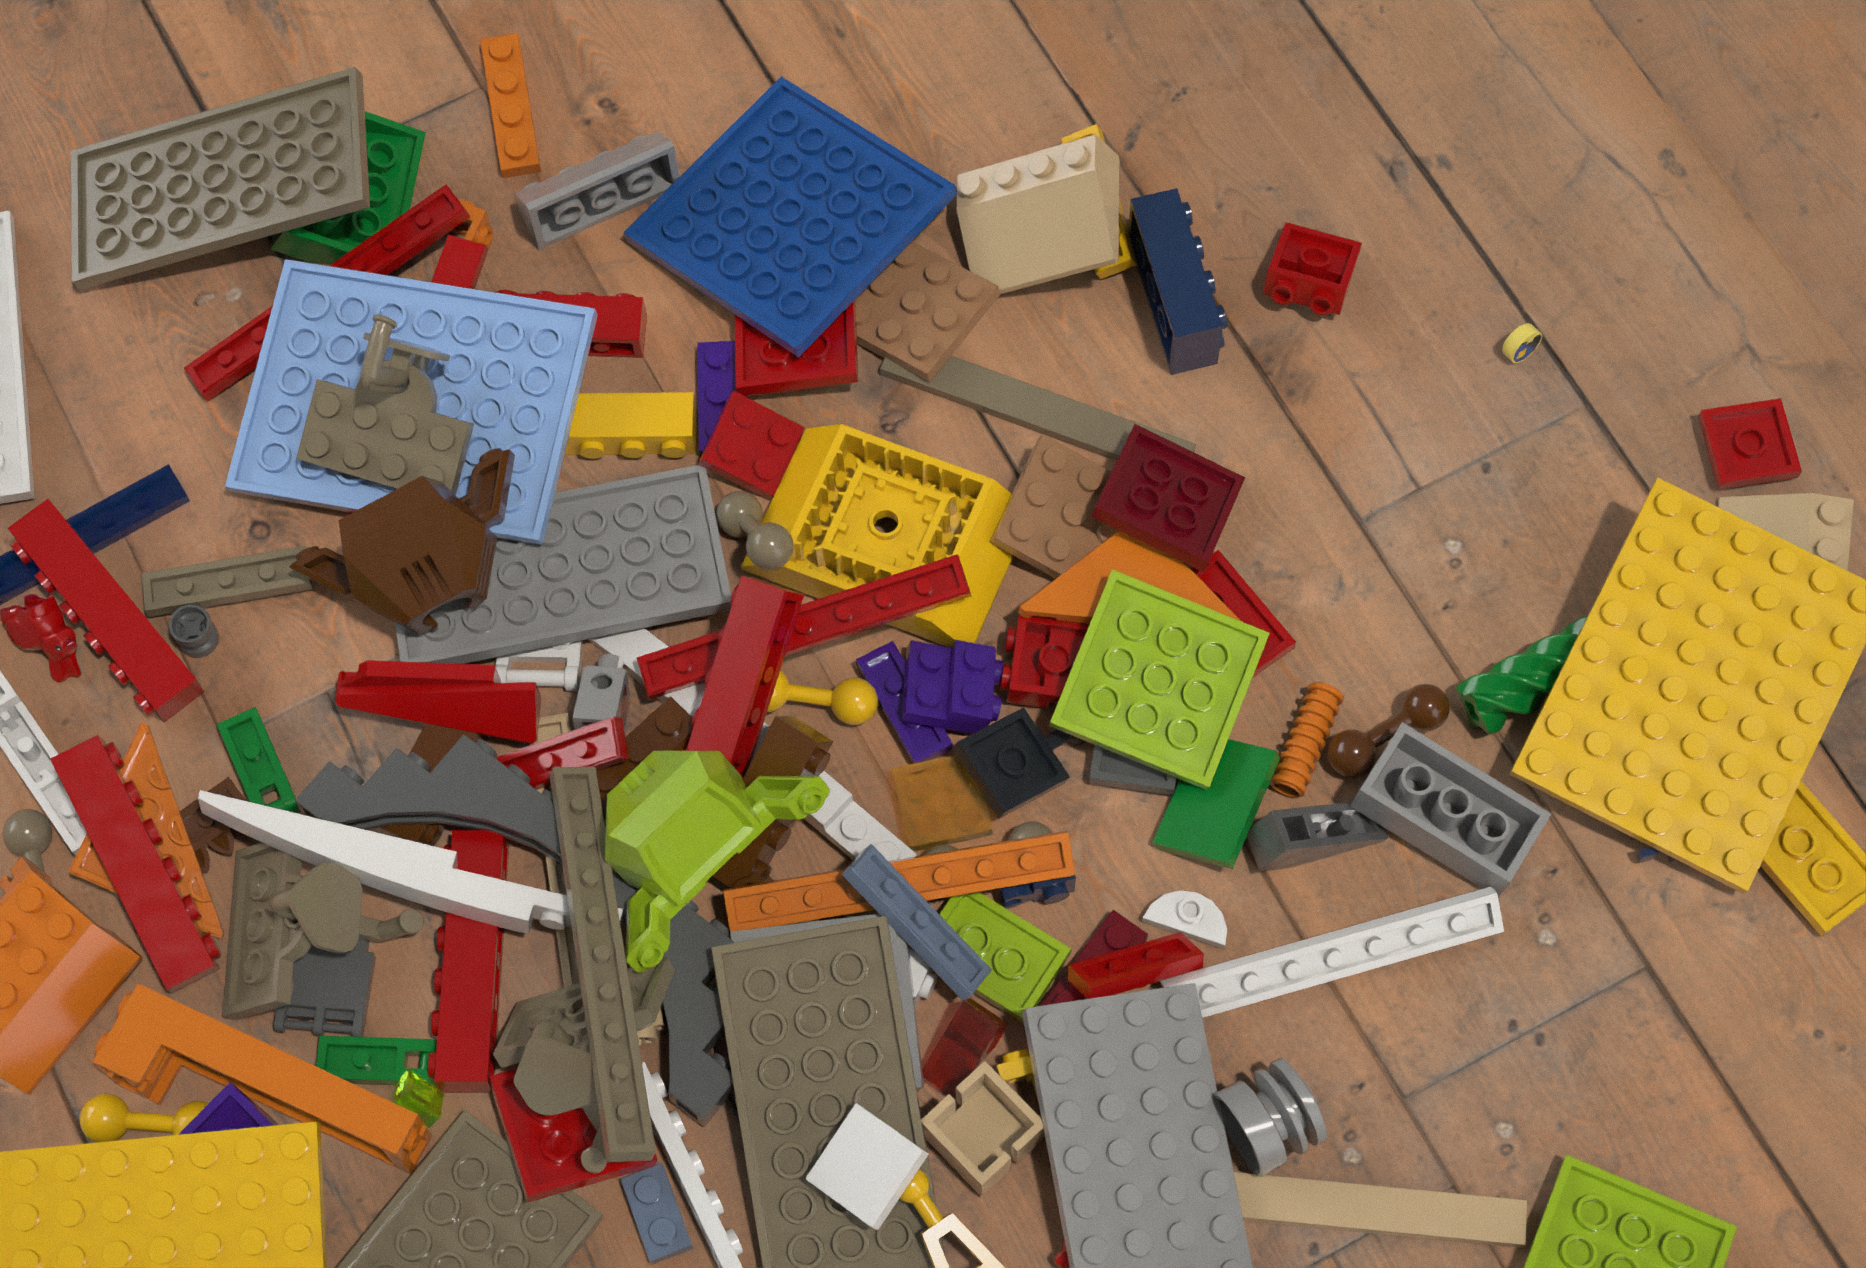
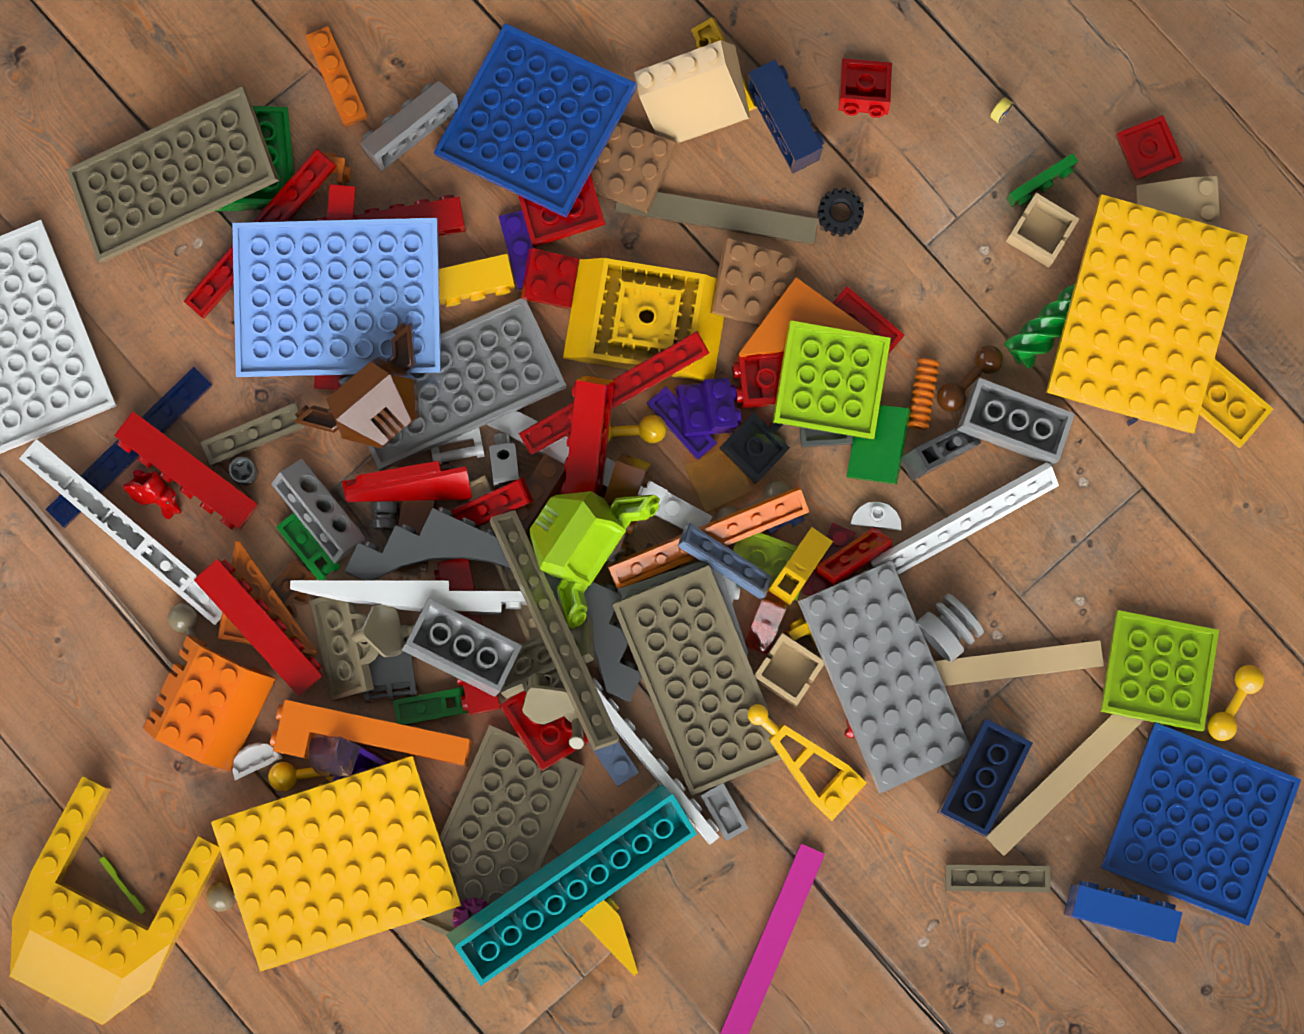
camera: 20 degrees left, 15 degrees up
(67, 1079) = (253, 758): none -> white plate
(189, 1093) = (332, 756): none -> brick
(287, 707) = (306, 507): none -> light grey brick
(389, 421) = (329, 325): dark tan plate -> none
(392, 734) = (385, 515): none -> dark grey wheel
(419, 1097) = (462, 725): clear neon green plate -> none
(446, 962) = (461, 647): none -> light grey slope
(767, 543) = (581, 347): dark tan piece -> none
(867, 1166) = (731, 711): white tile -> none
(1039, 962) = (800, 566): none -> yellow slope
(1168, 497) = (811, 261): dark red plate -> none
(1239, 420) = (844, 197): none -> black tyre
(1557, 527) = (1042, 230): none -> tan piece
(1567, 457) = (1043, 181): none -> green plate

